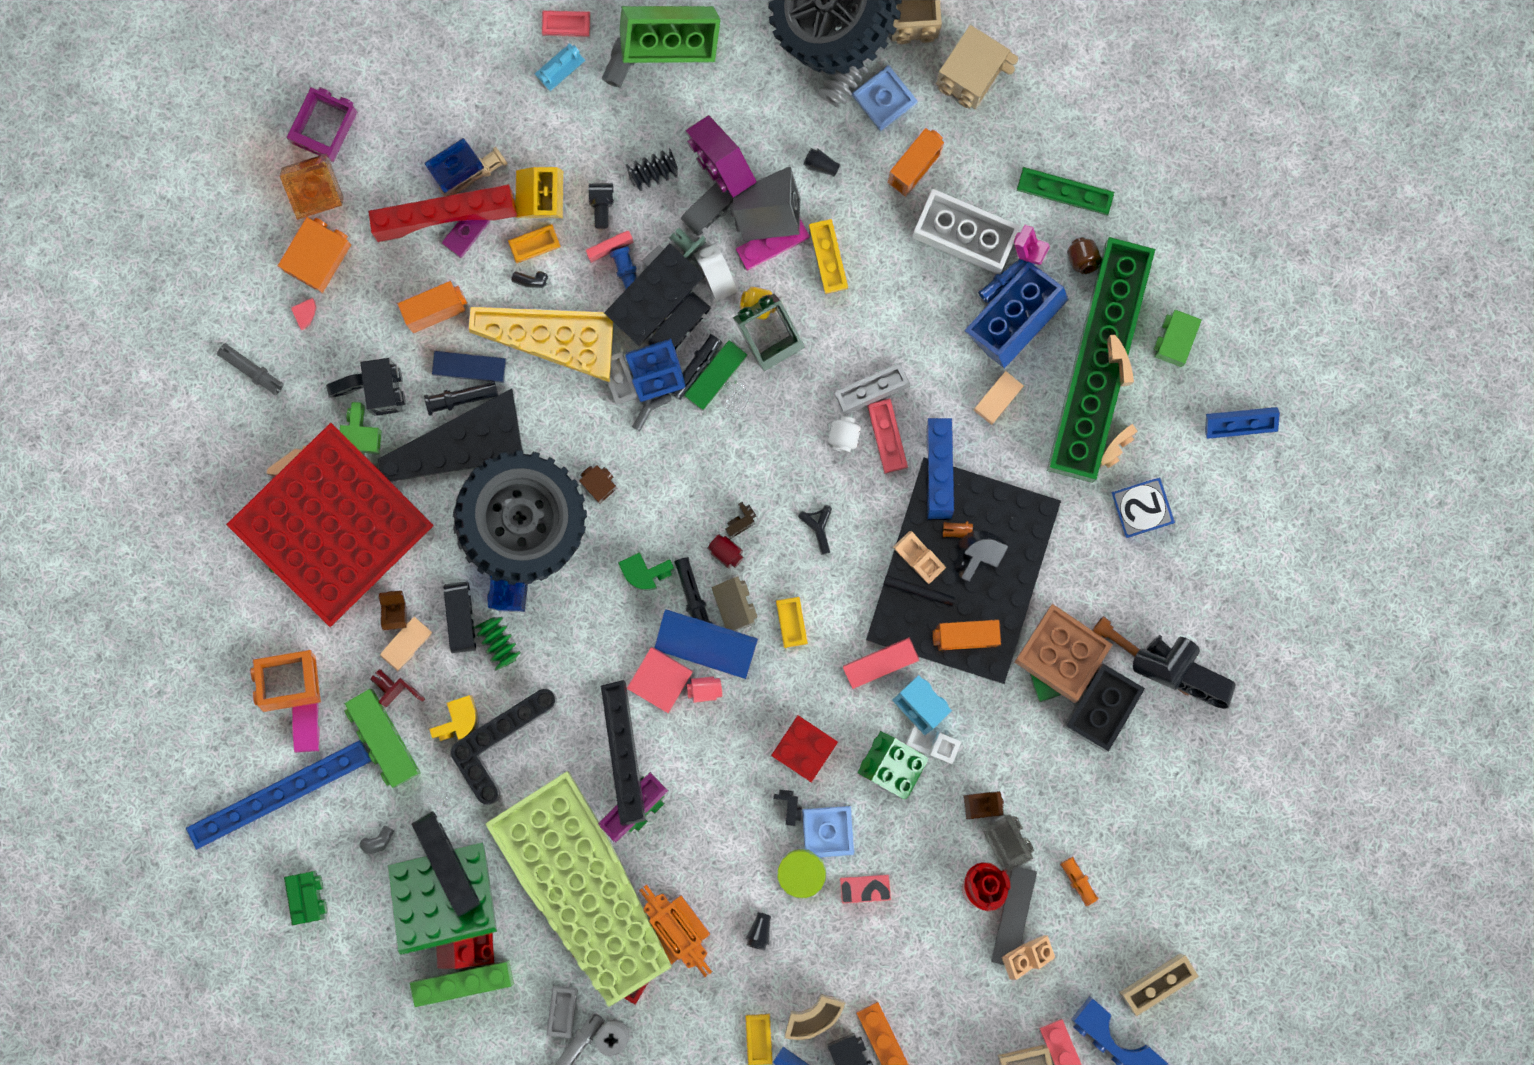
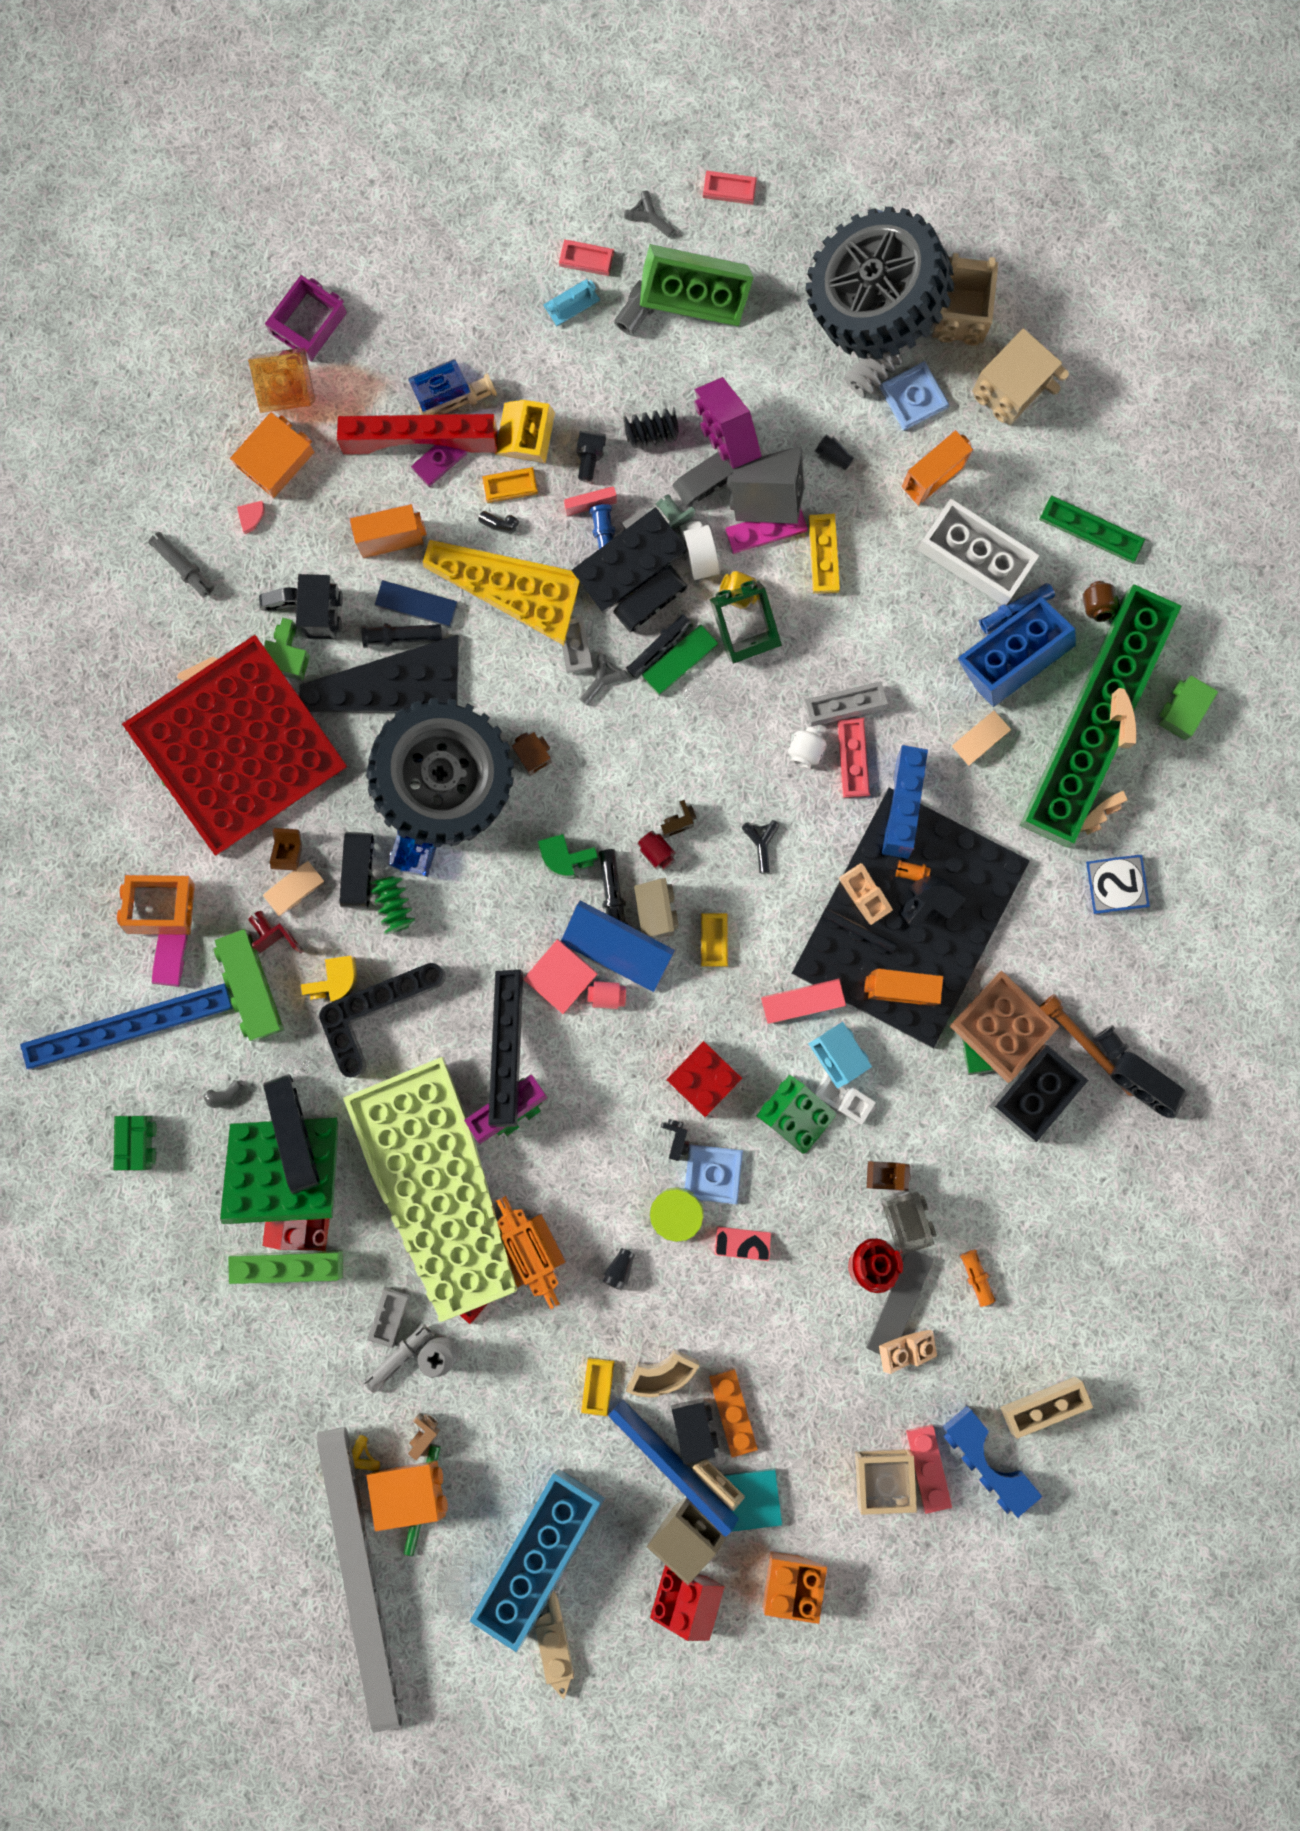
camera: 10 degrees right, 0 degrees up
(655, 370) = (616, 641): blue slope -> none
(1029, 247) = (1043, 580): dark pink bracket -> none
(1167, 670) = (1117, 1065): black brick -> none
(1242, 422) = (1242, 811): blue plate -> none

